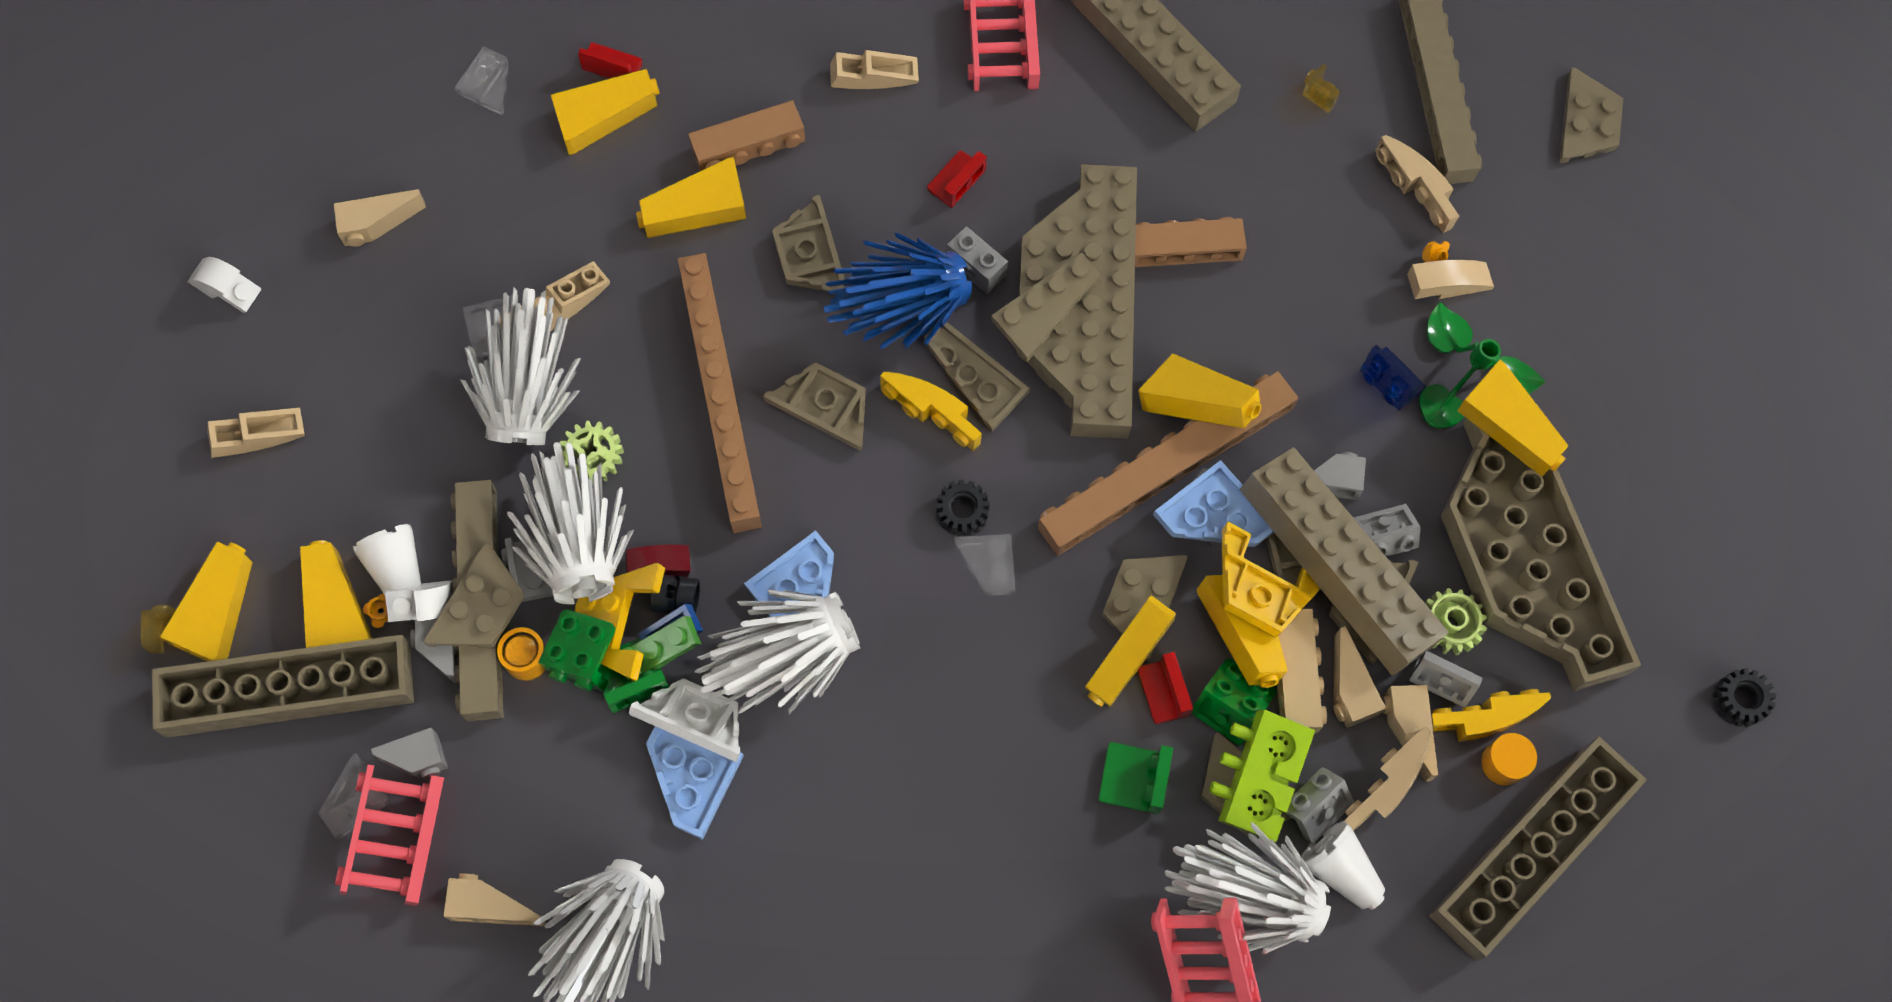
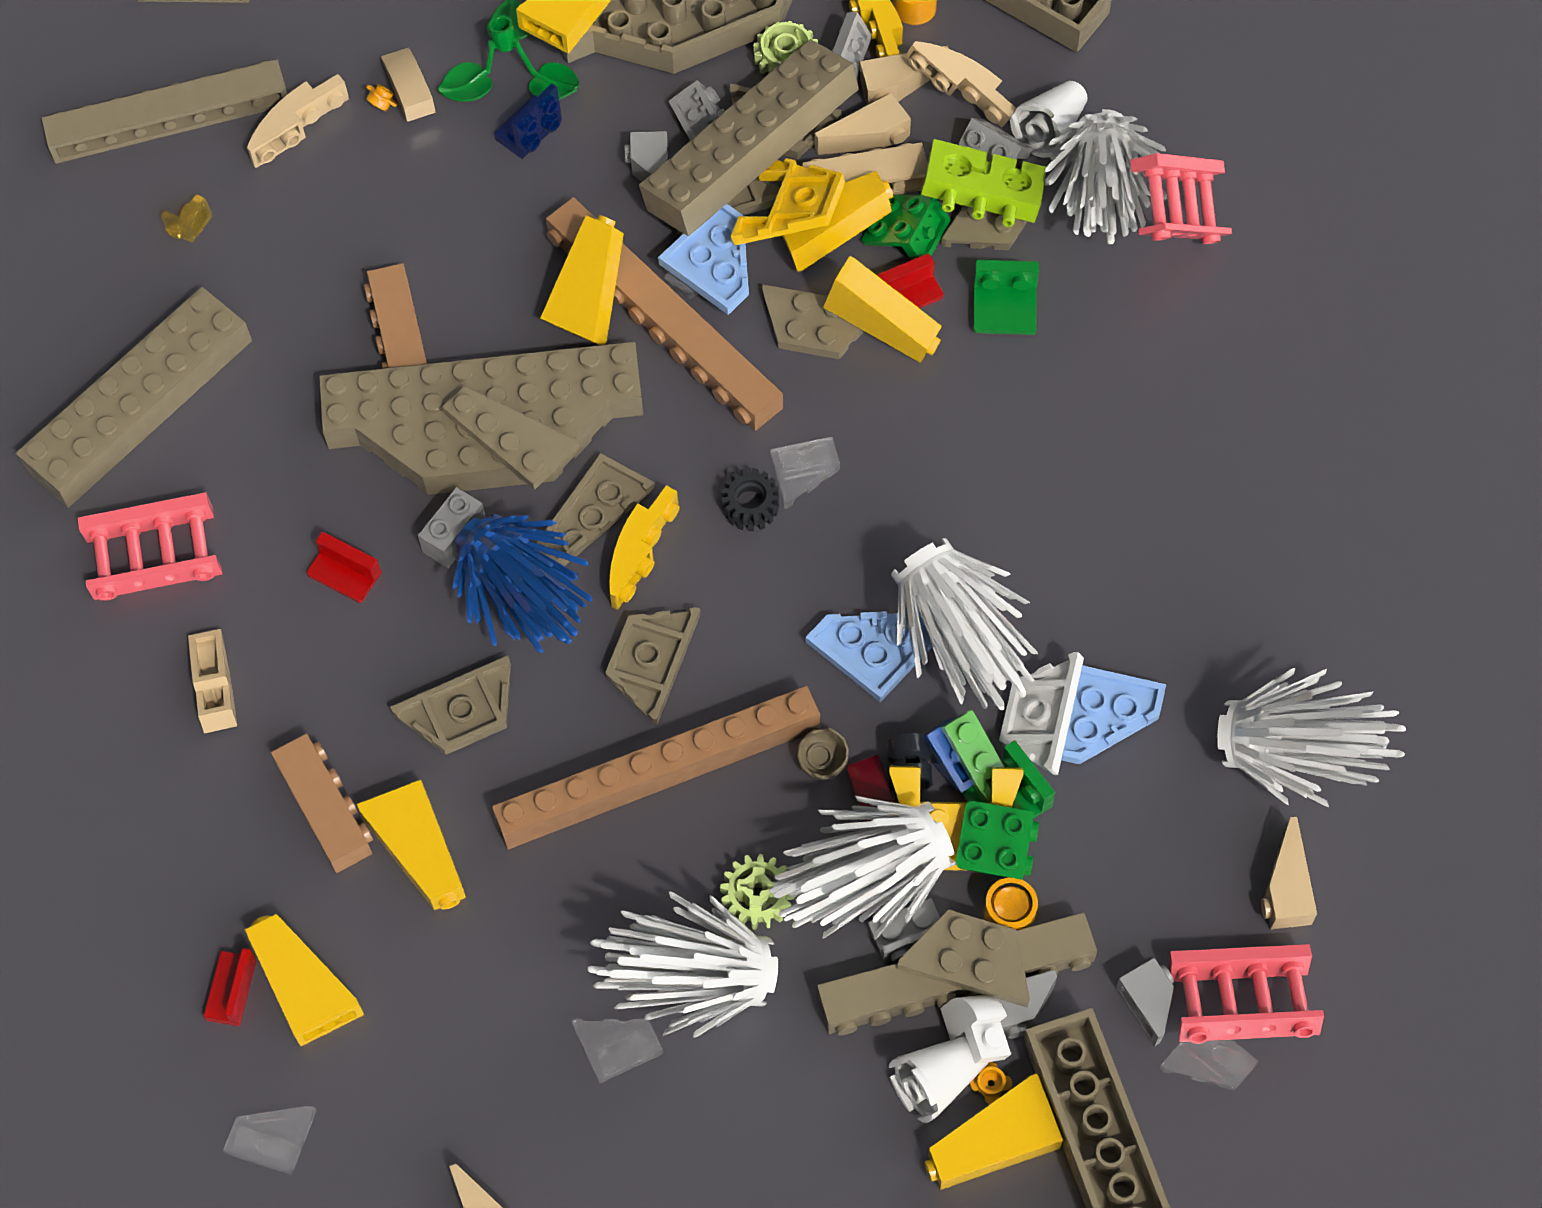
camera: 95 degrees left, 5 degrees down
(574, 292) = (568, 969): tan slope -> none
(700, 525) = (823, 753): none -> dark tan hair

